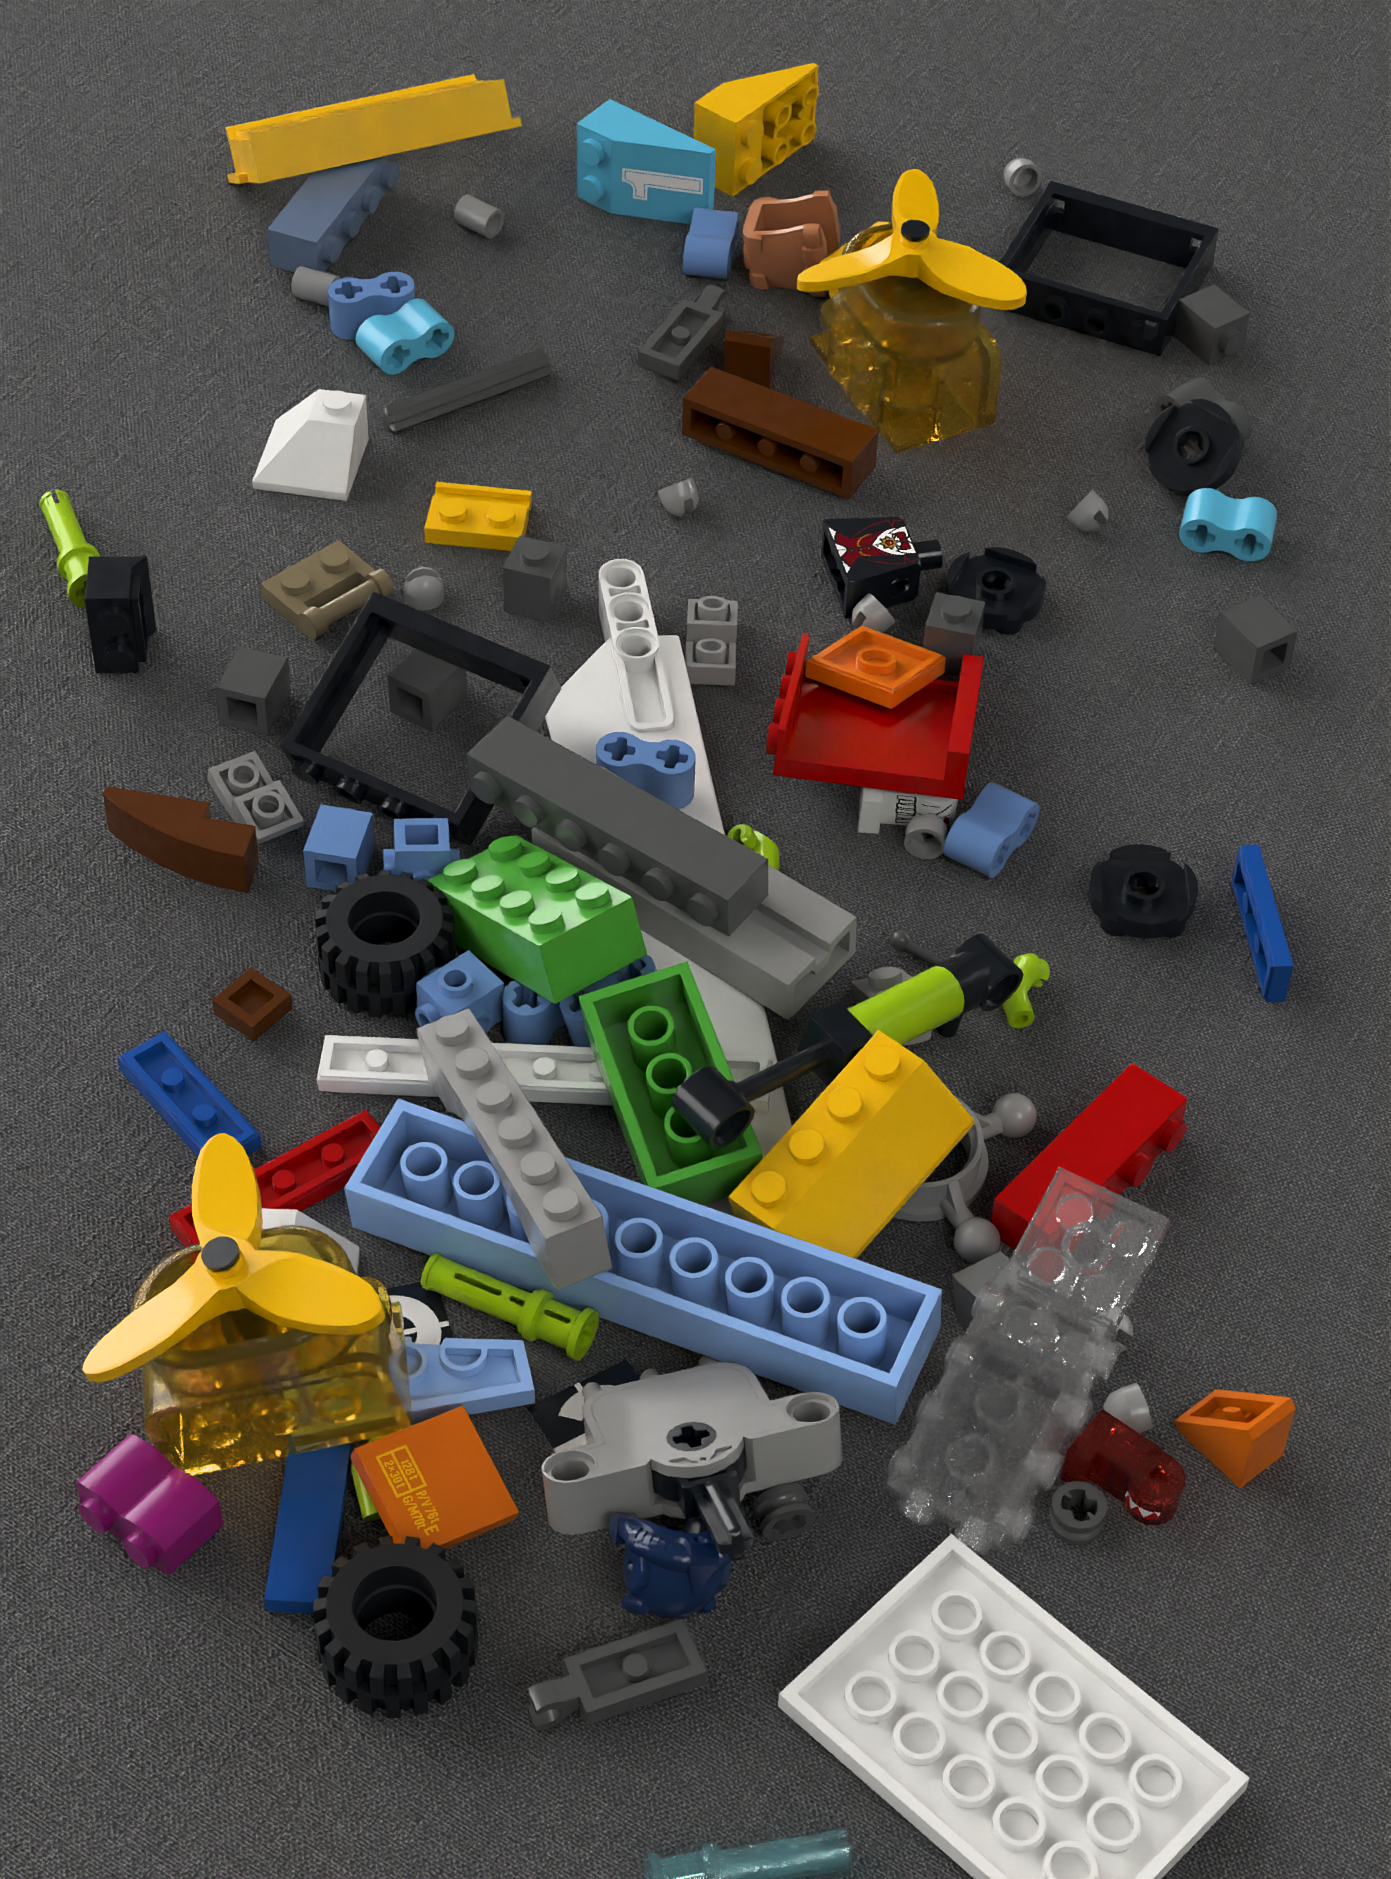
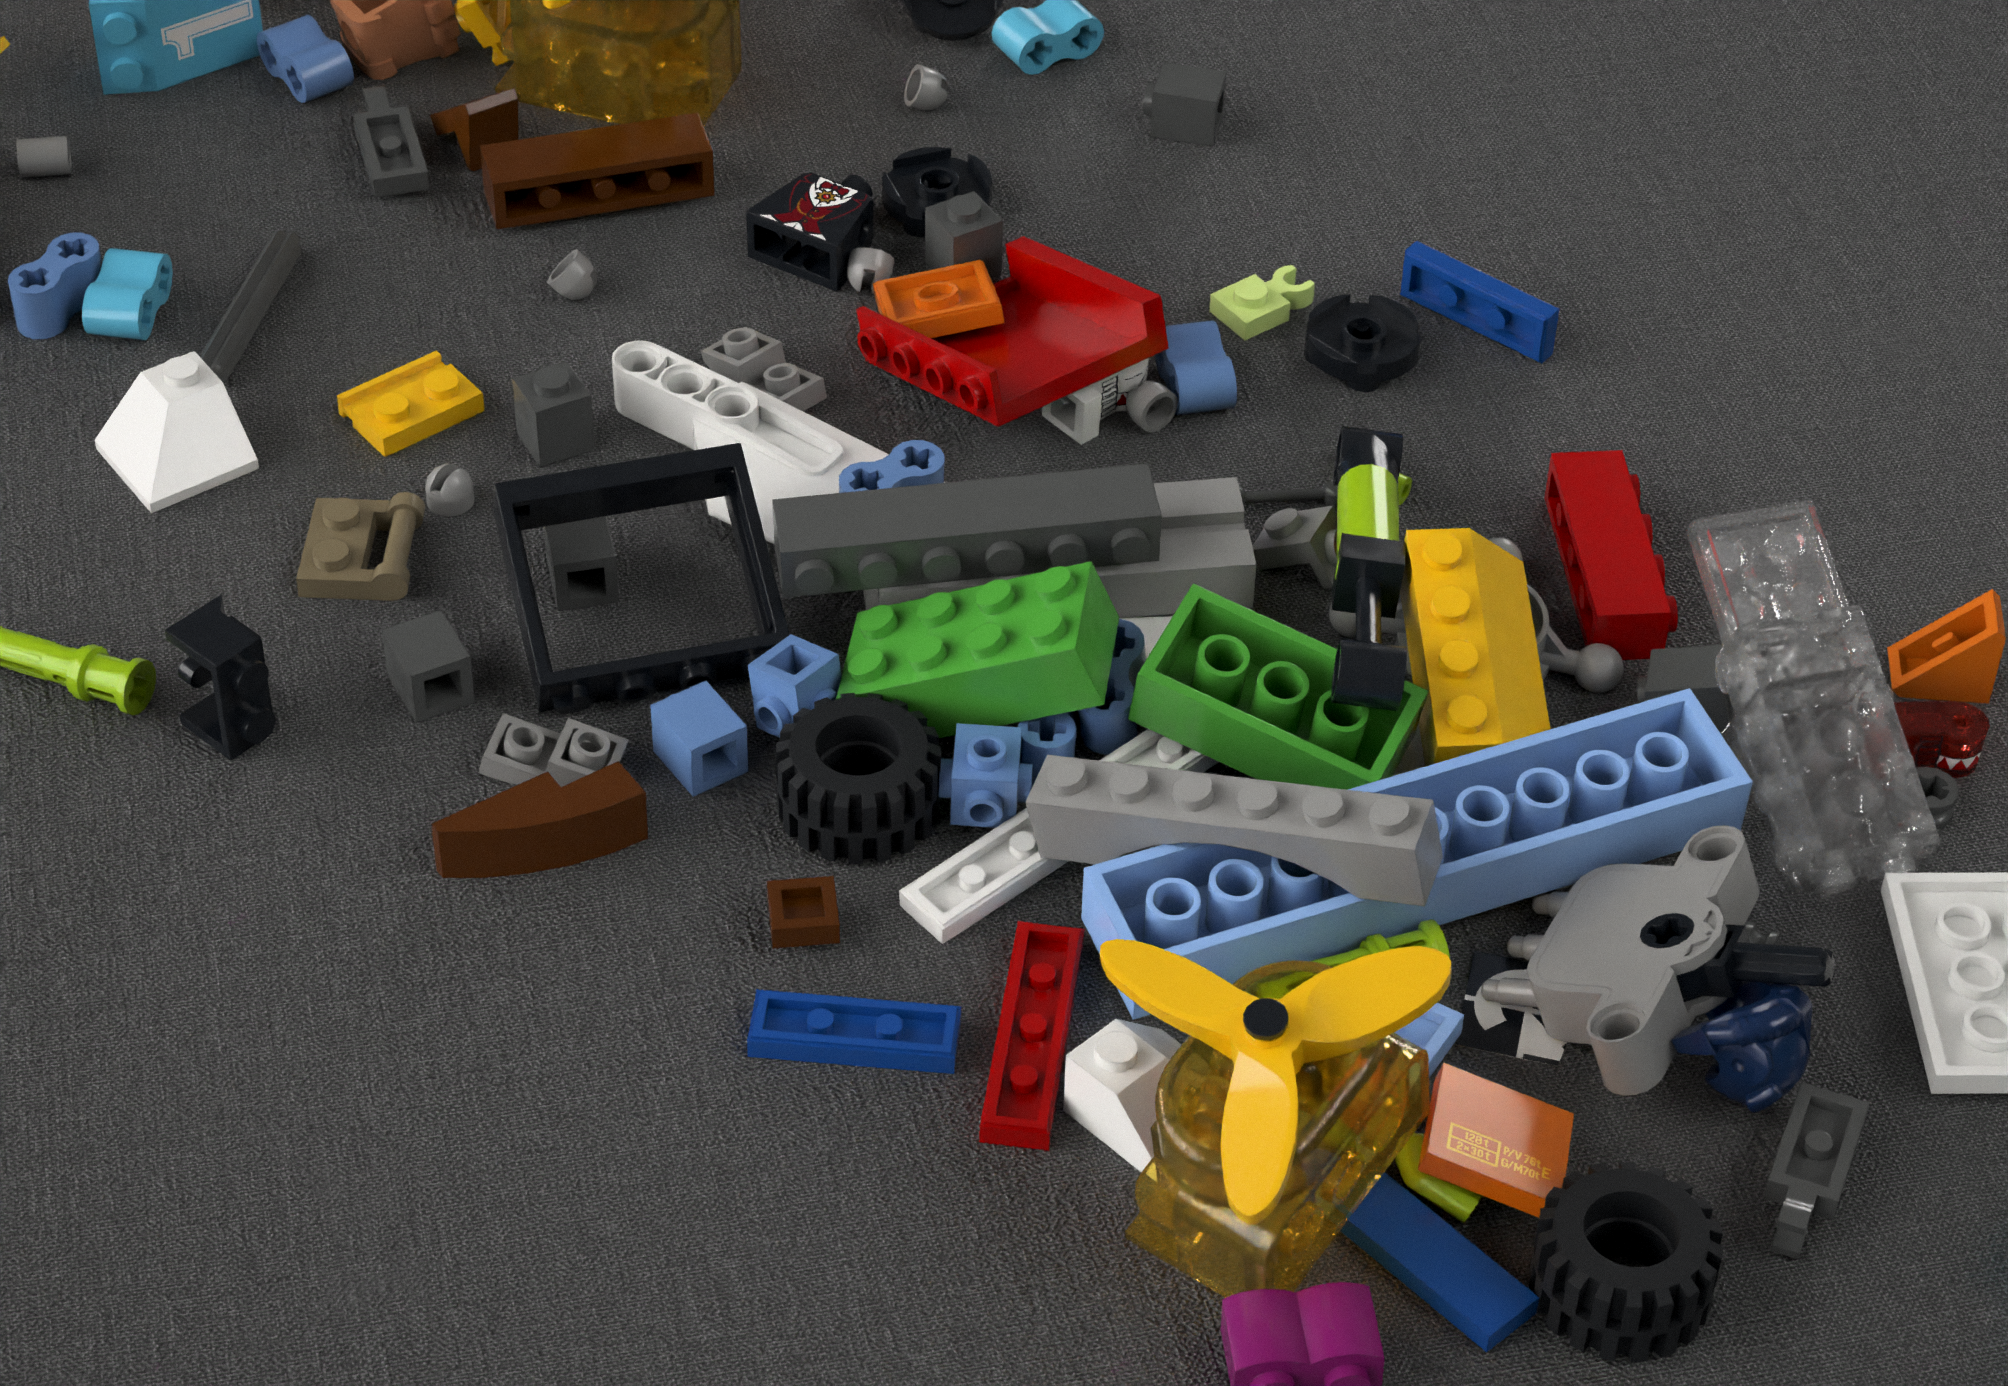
camera: 45 degrees left, 5 degrees down
(1110, 817) = (1257, 306): none -> yellowish green plate

